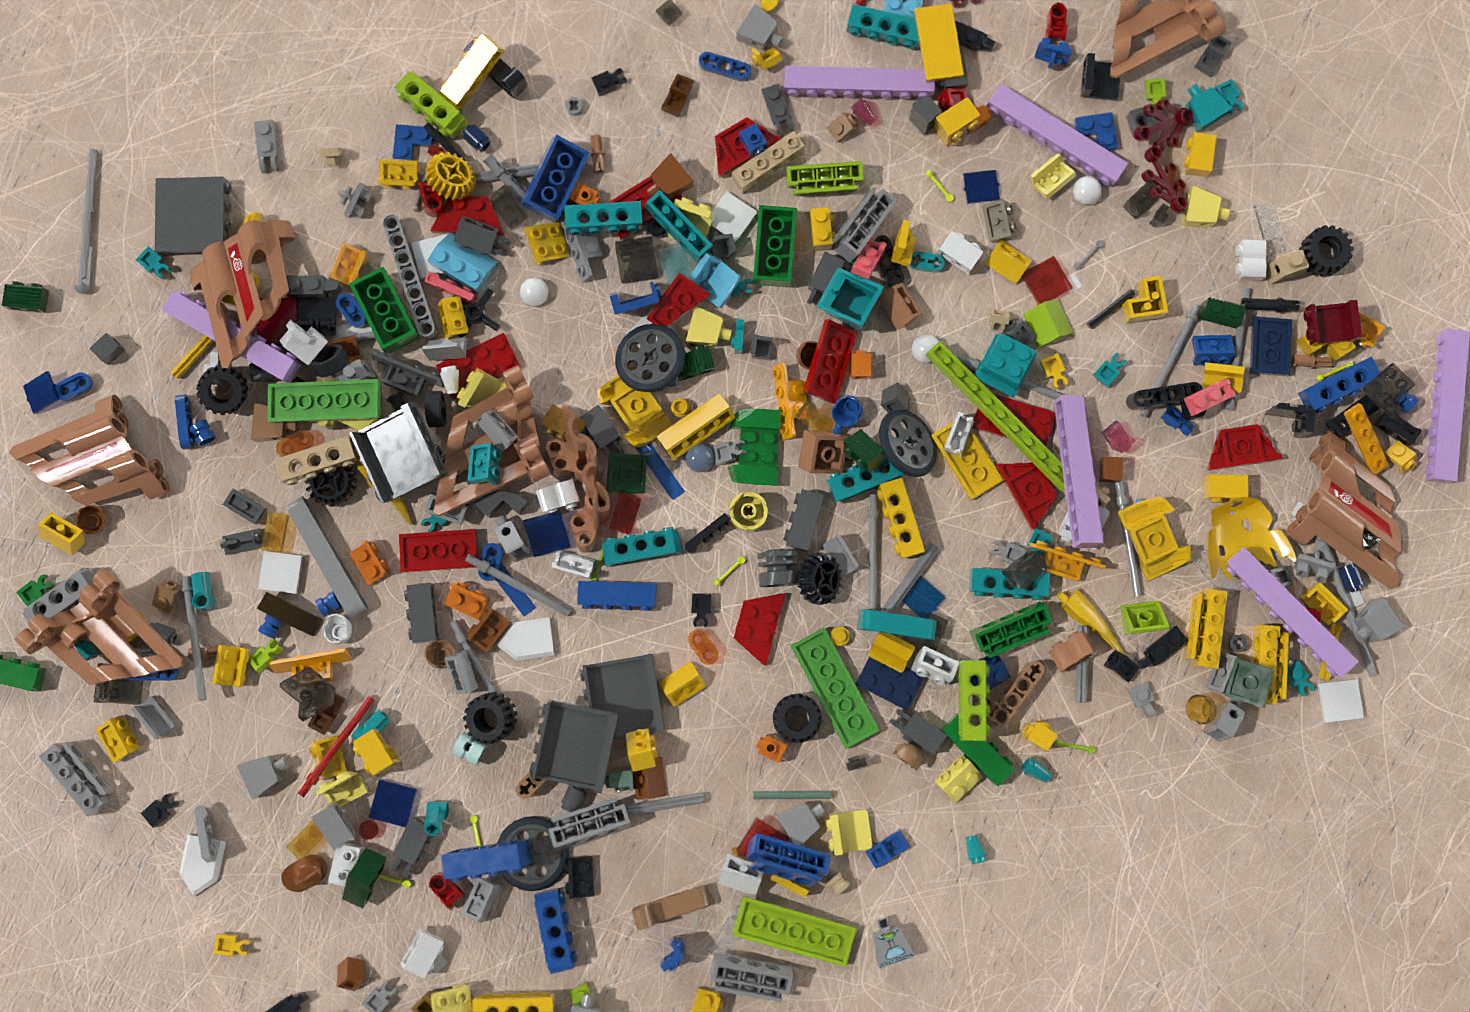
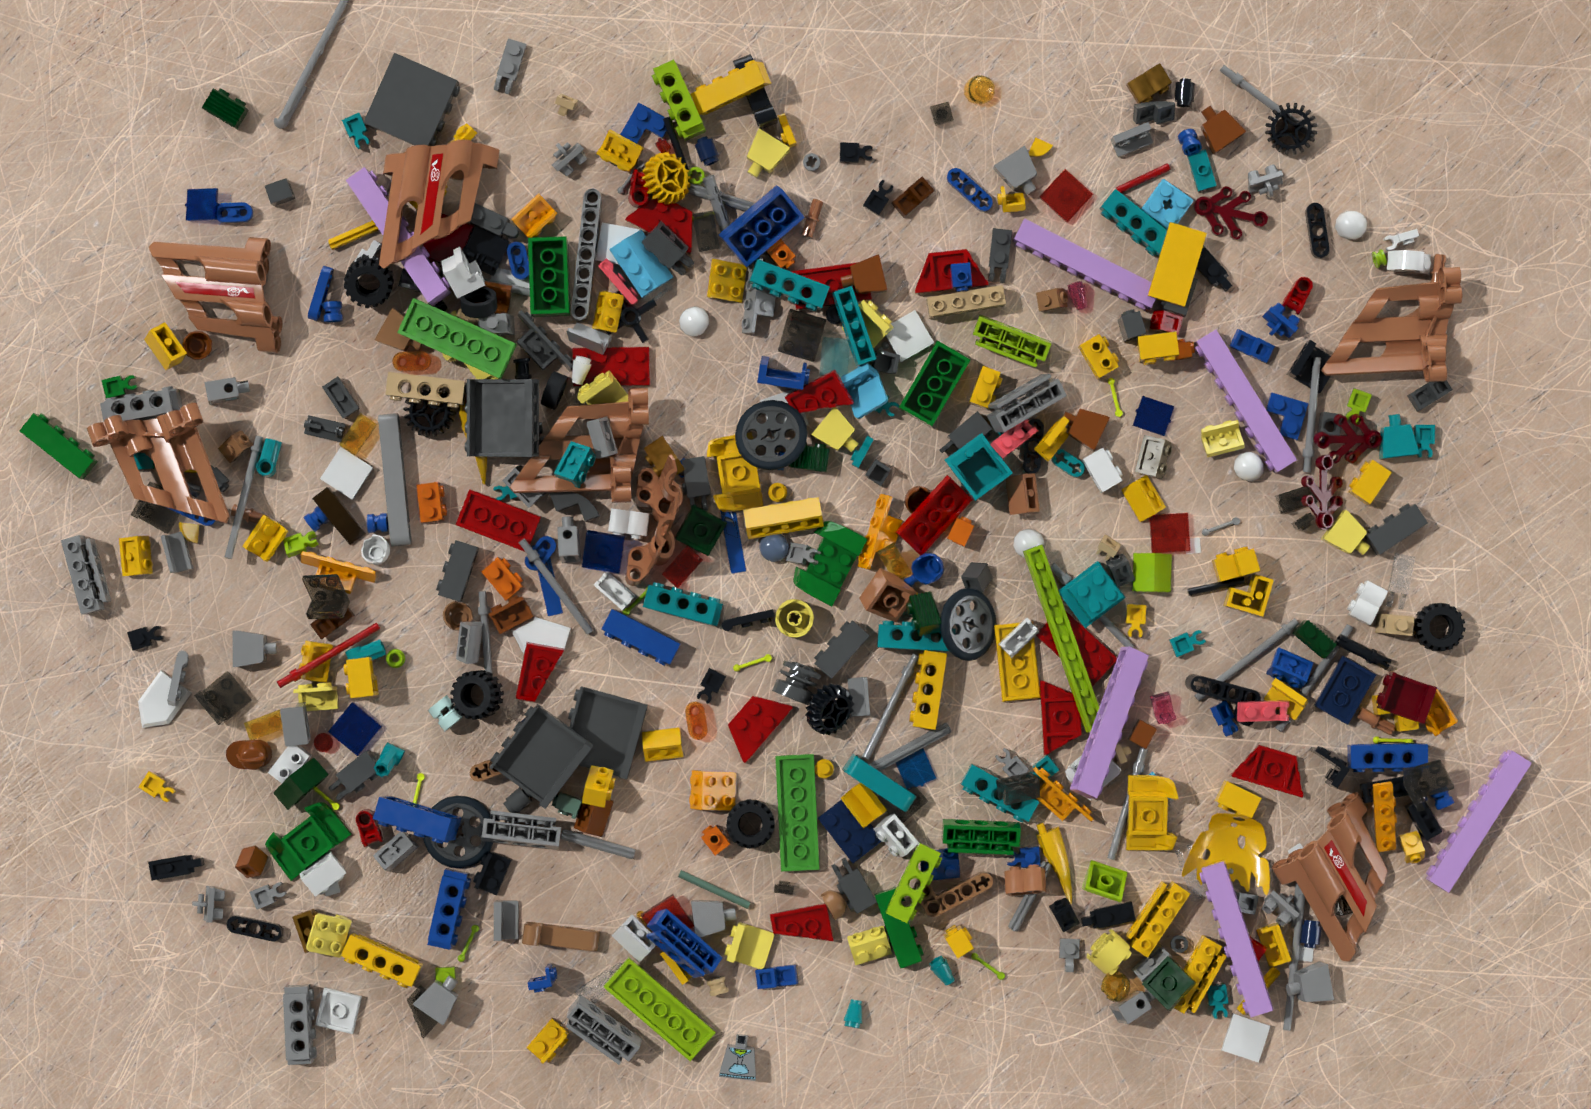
camera: 25 degrees right, 5 degrees up
(126, 551) = (216, 390): none -> light grey torso
(158, 692) = (189, 531): none -> yellow tile
(257, 833) = (223, 698): none -> clear smoke bracket
(395, 723) = (389, 658): none -> lime plate
(395, 928) = (308, 840): none -> green piece
(477, 159) = (698, 170): none -> lime bush
(529, 115) = (765, 153): none -> light yellow torso
(534, 669) = (536, 667): none -> red wing
(541, 91) = (787, 135): none -> yellow plate
(588, 971) = (474, 928): none -> lime hinge
(613, 915) = (506, 919): none -> light grey panel
(647, 112) = (876, 200): none -> black plate
(747, 704) = (712, 790): none -> light orange bracket
(811, 33) = (1065, 195): none -> clear red plate
(888, 786) = (803, 922): none -> red wing
(908, 155) = (1098, 356): none -> yellow brick
(928, 222) = (1086, 427): none -> dark orange torso
(1038, 87) = (1251, 346): none -> blue slope
(1061, 630) = (1026, 857): none -> blue plate
(1124, 275) = (1235, 565): none -> yellow brick
(1133, 154) = (1308, 452): none -> light grey bar
(1180, 680) = (1109, 952): none -> light yellow brick
(1243, 183) = (1395, 528): none -> dark grey brick

